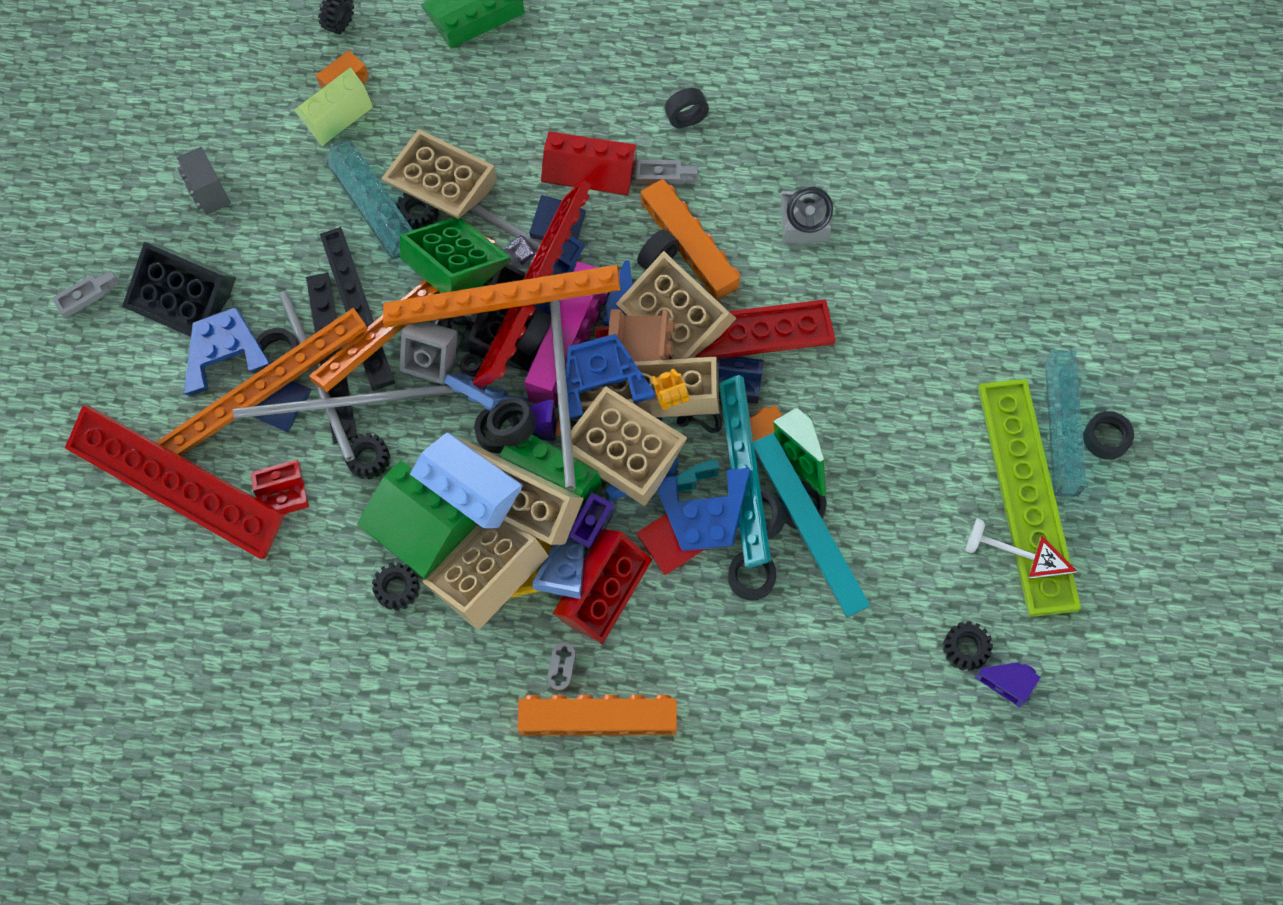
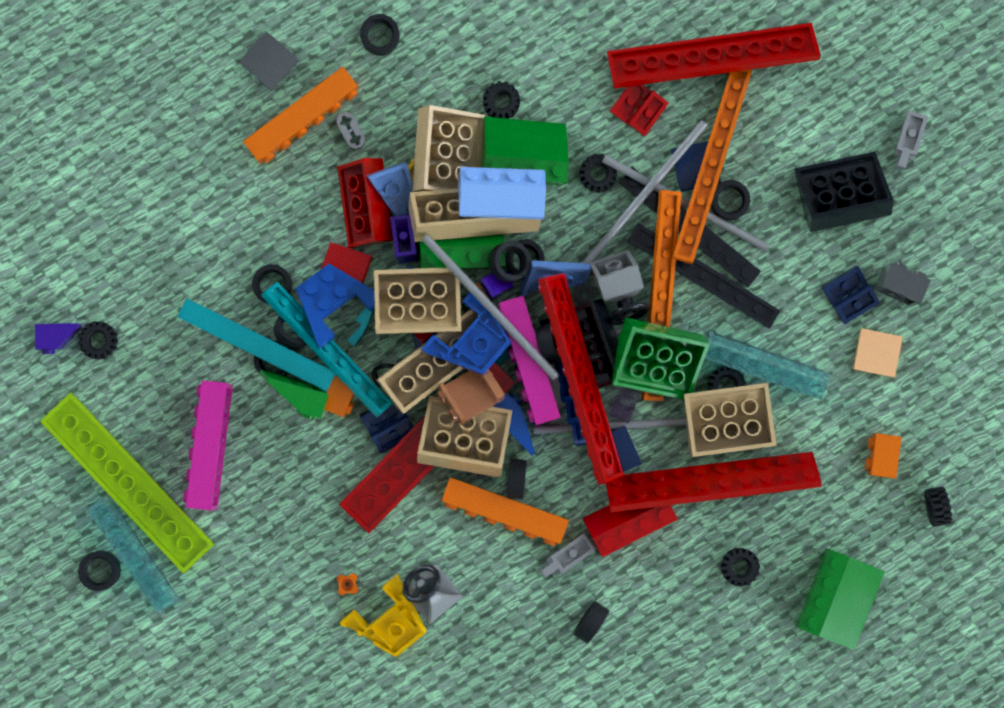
camera: 140 degrees right, 20 degrees up
(217, 340) = (775, 175): wing -> none
(255, 203) = (856, 302): none -> dark blue slope
(274, 154) = (877, 352): none -> light nougat tile
(335, 106) = (864, 421): yellowish green slope -> none
(439, 729) = (368, 23): none -> black tyre
(493, 141) = (713, 482): none -> red plate
(501, 296) = (585, 341): orange plate -> none
(525, 65) = (749, 576): none -> black tyre
(587, 800) = (269, 61): none -> dark grey slope
(670, 389) = (414, 361): light orange hand -> none
(864, 211) = (394, 628): none -> yellow wing
(877, 269) = (351, 579): none -> orange plate
(922, 466) = (208, 445): none -> dark pink brick
(1045, 562) = (82, 438): white piece -> none

